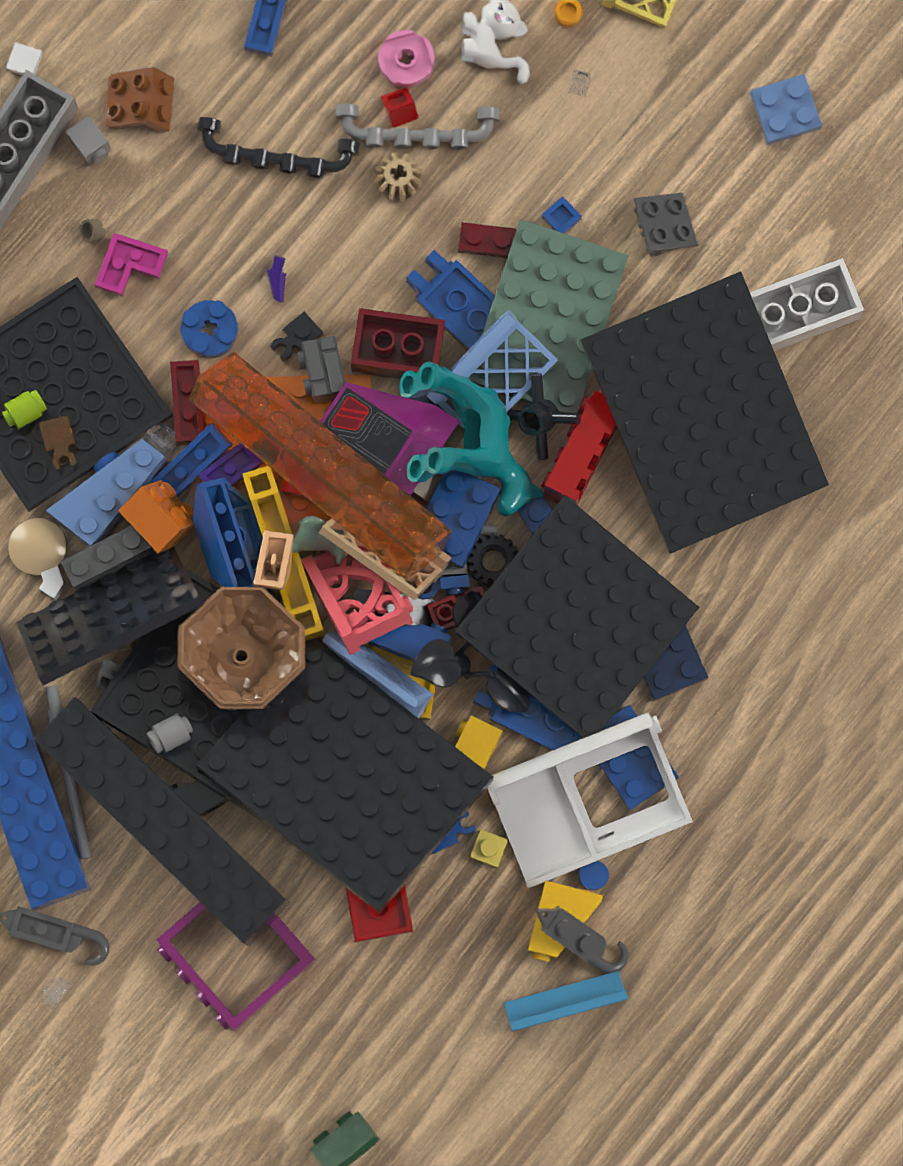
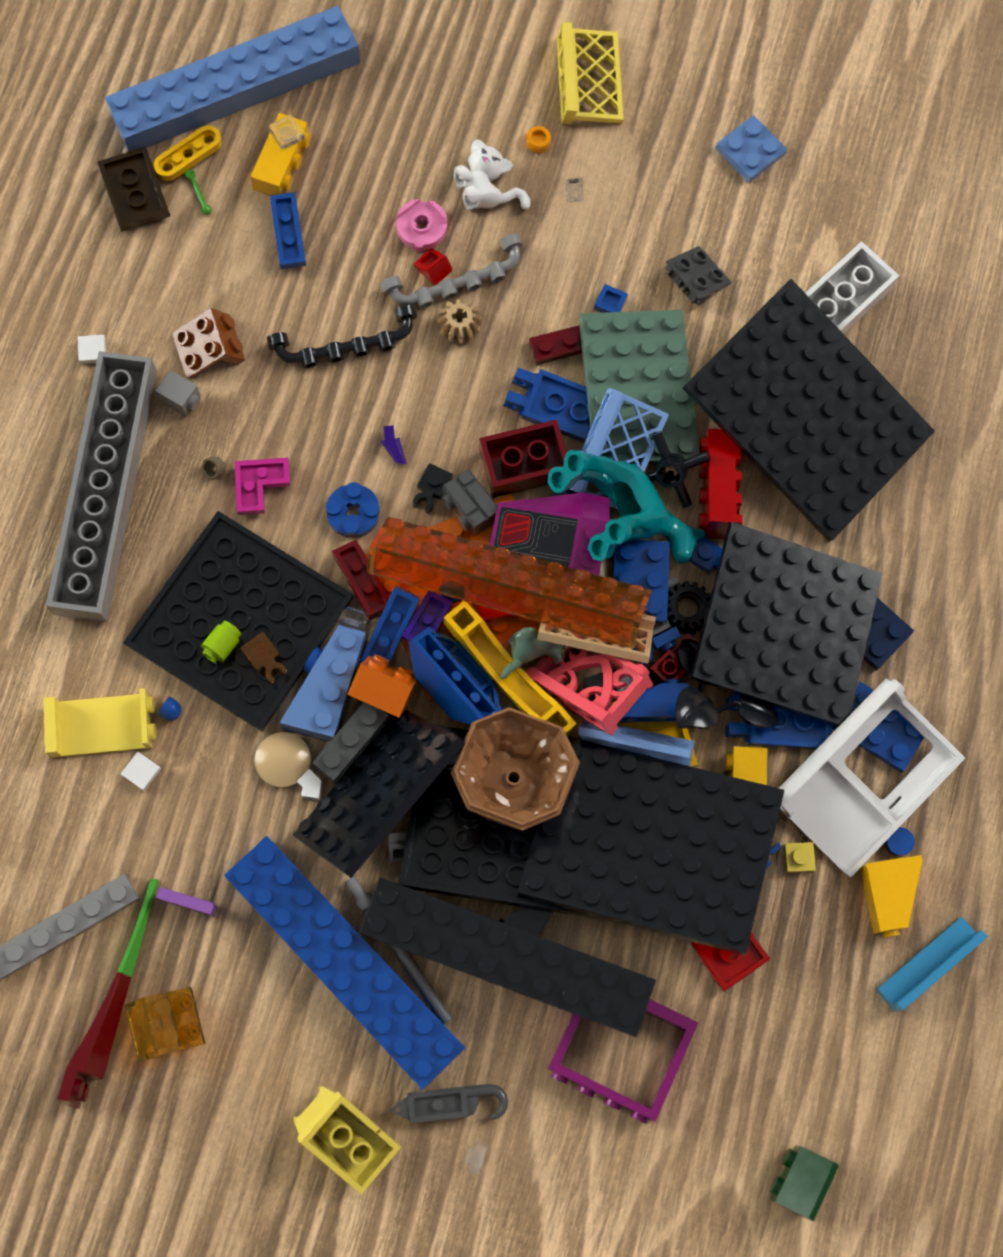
camera: 30 degrees left, 5 degrees down
(170, 733) = (481, 874): light grey brick -> none
(274, 560) = (506, 680): light nougat slope -> none
(579, 938) = (920, 901): dark grey plate -> none

